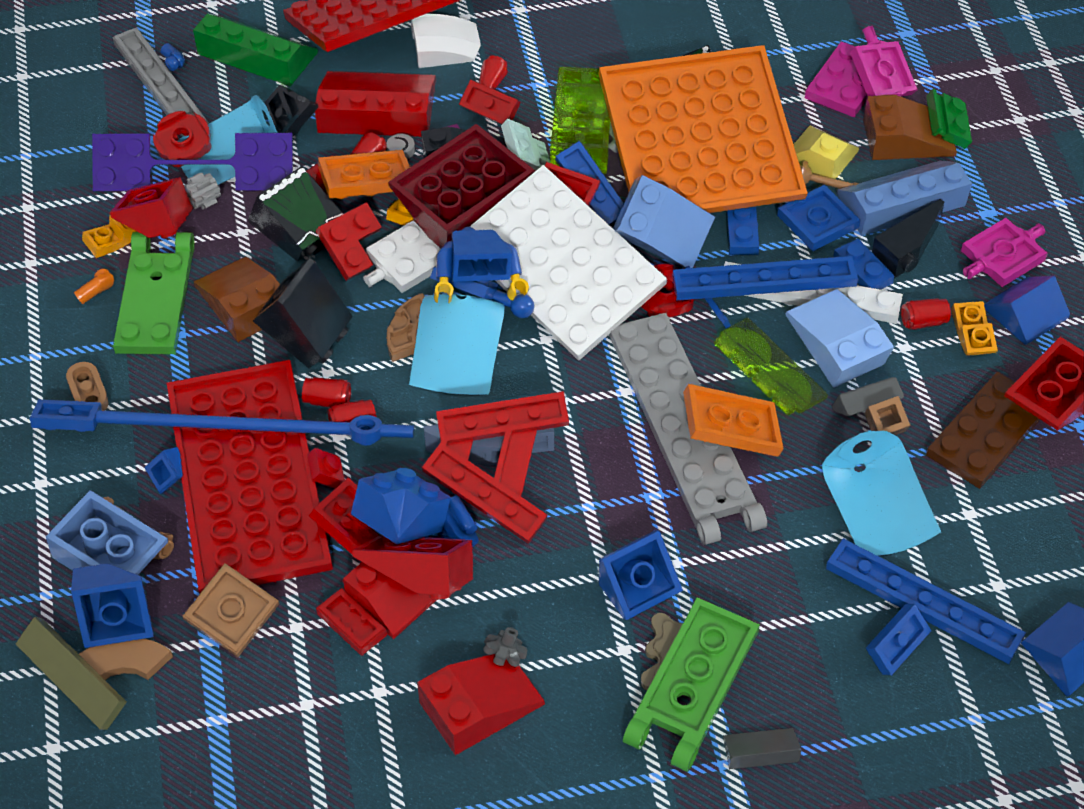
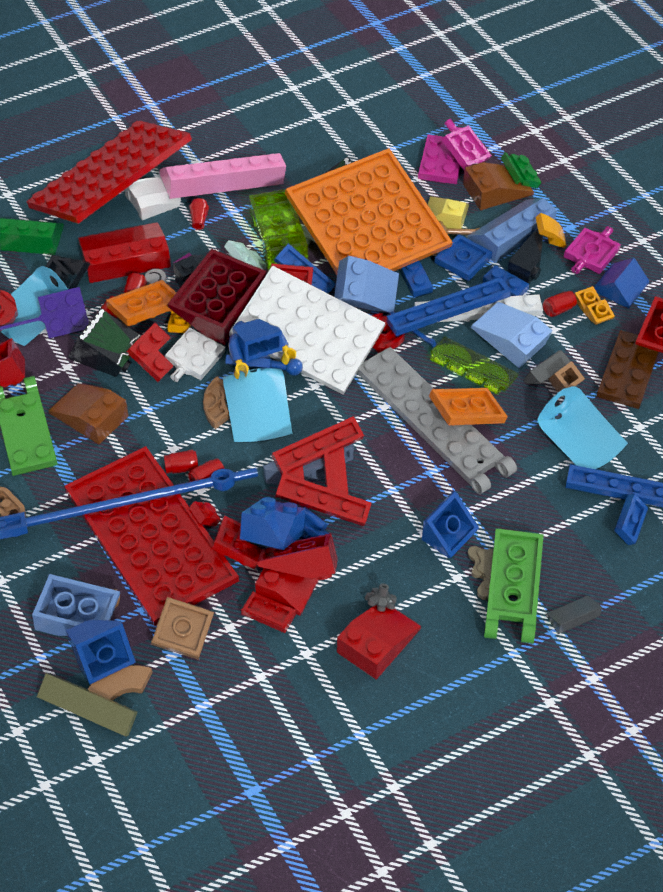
camera: 20 degrees left, 0 degrees up
(165, 469) = (91, 546): blue slope -> none
(202, 190) = (28, 343): light grey gear -> none
(305, 315) = (146, 411): black slope -> none
(489, 102) = (206, 233): red plate -> none
(542, 34) = (223, 175): none -> bright pink slope
(954, 208) = (552, 229): none -> light orange slope

